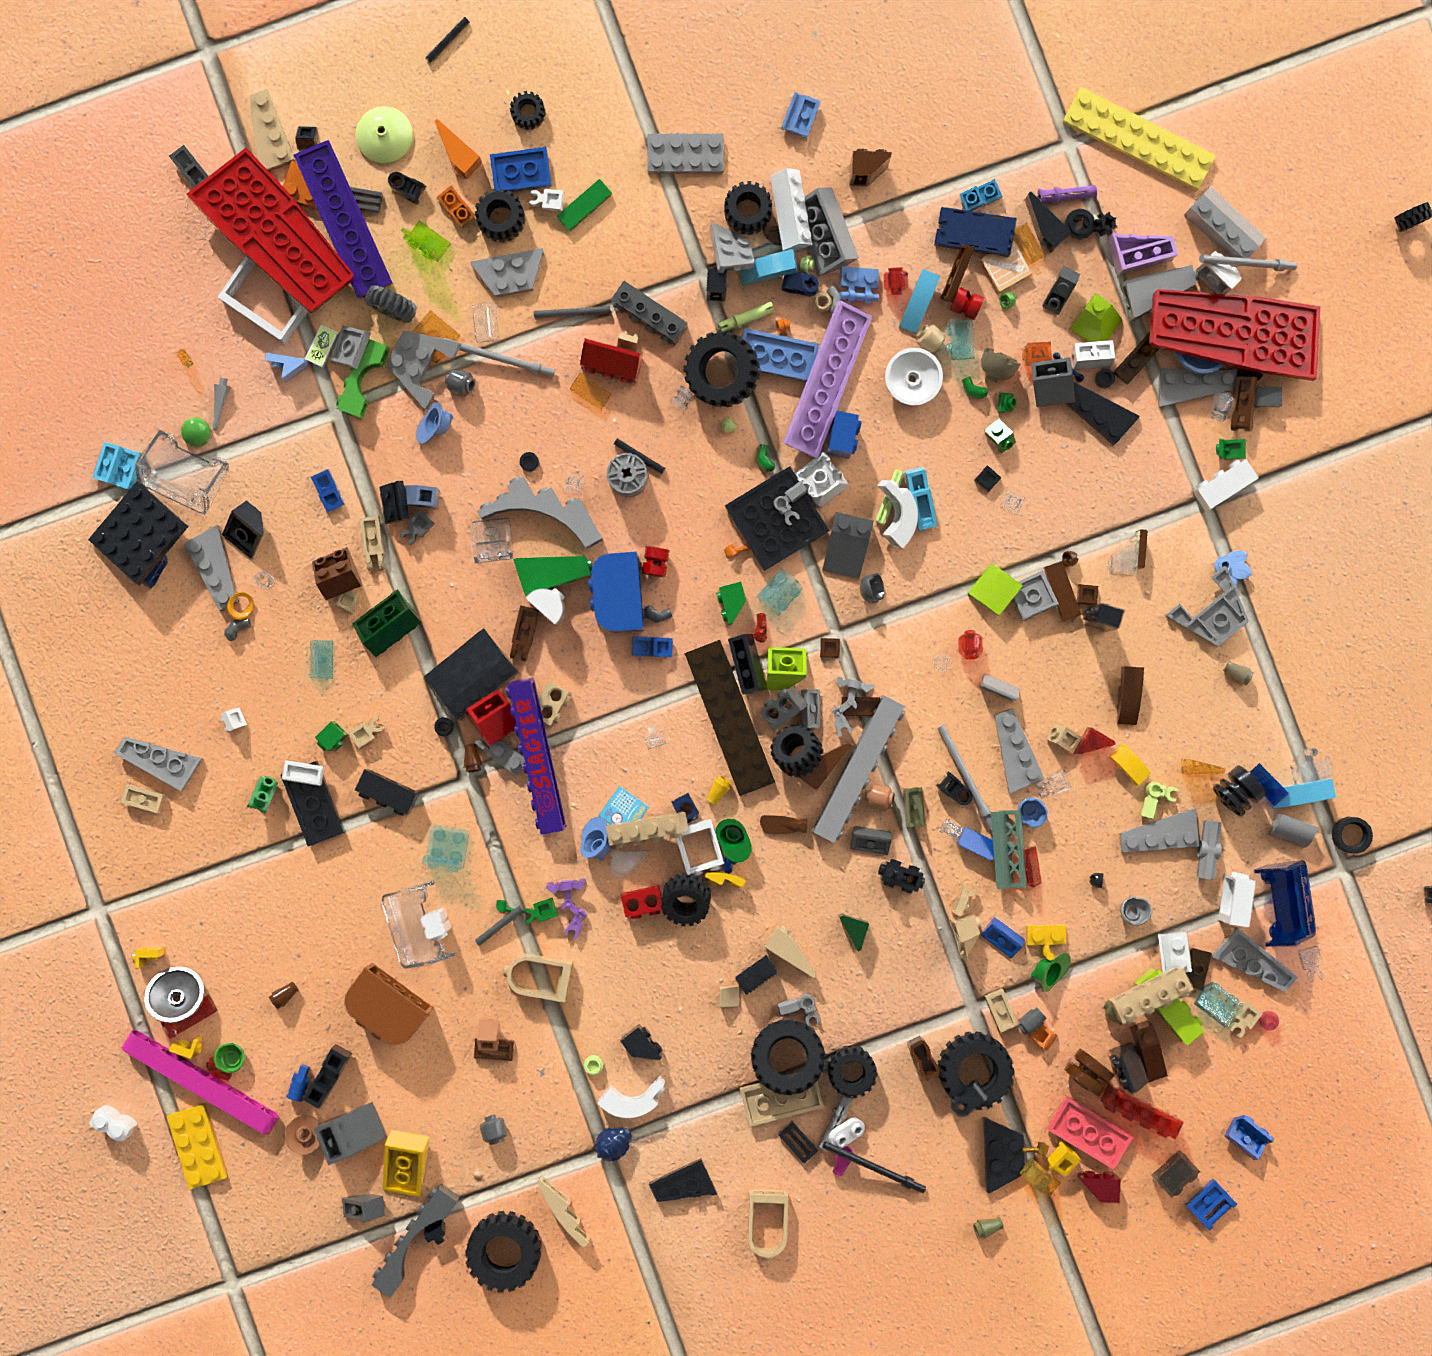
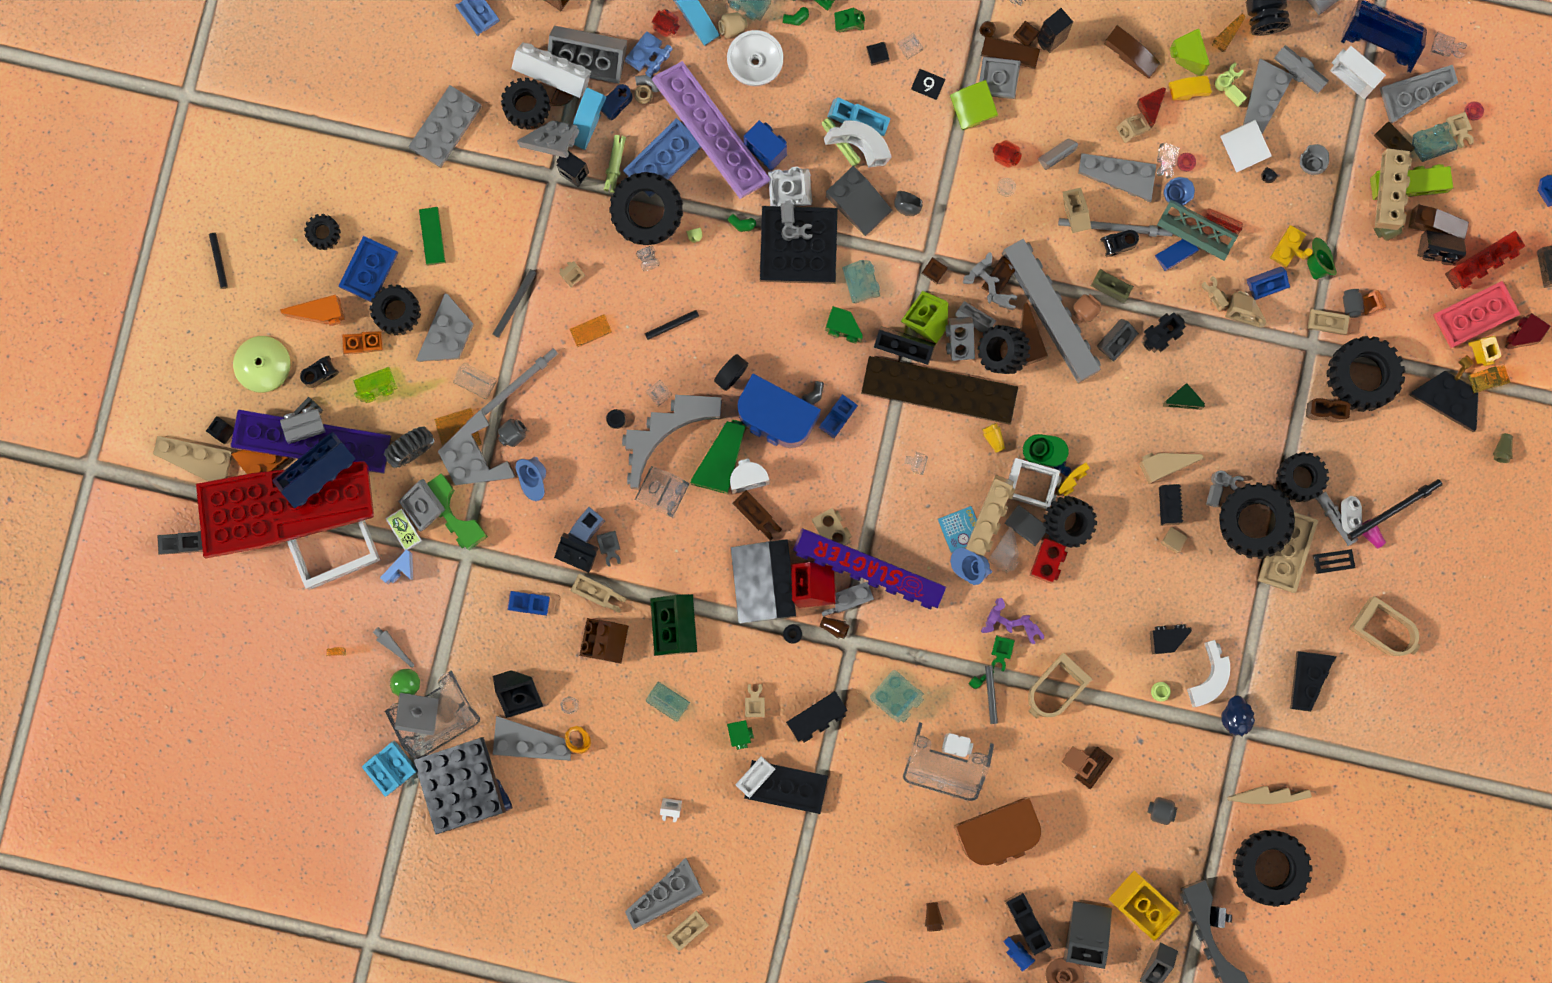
camera: 50 degrees left, 5 degrees down
(173, 458) = (416, 714): none -> light grey plate
(234, 626) = (592, 758): dark grey arm -> none
(263, 794) = (750, 822): green hips -> none
(316, 237) = (314, 470): none -> dark blue slope
(348, 601) = (633, 647): tan tile -> none
(349, 203) = (302, 425): none -> light grey brick
(550, 200) = (409, 260): white plate -> none
(610, 361) = (578, 296): red slope -> none
(629, 532) = (731, 372): none -> black tyre
(631, 485) = (677, 353): light grey wheel -> none
(649, 313) = (558, 240): dark grey brick -> none
(657, 555) = (763, 363): red wheel -> none
(660, 864) = (1026, 525): none -> dark grey slope
(686, 799) = (985, 468): dark blue brick -> none
(731, 551) = (800, 300): orange hand -> none
(761, 628) = (883, 316): clear red arm -> none
(782, 824) = (1057, 403): reddish brown piece -> none
(783, 326) = (642, 138): orange plate -> none
(807, 264) = (604, 86): yellowish green plate -> none
(951, 829) = (1150, 267): clear bush -> none
(958, 735) = (1076, 210): none -> tan brick
(970, 1097) = (1386, 387): black piece -> none
(989, 538) = (928, 84): none -> black sticker
(1069, 802) = (1186, 156): none -> clear pink plate
(1088, 1073) = (1425, 280): reddish brown wheel -> none
(1109, 844) = (1245, 146): none -> white slope
(1161, 745) = (1190, 52): none -> lime slope
(1175, 951) = (1368, 149): white plate -> none

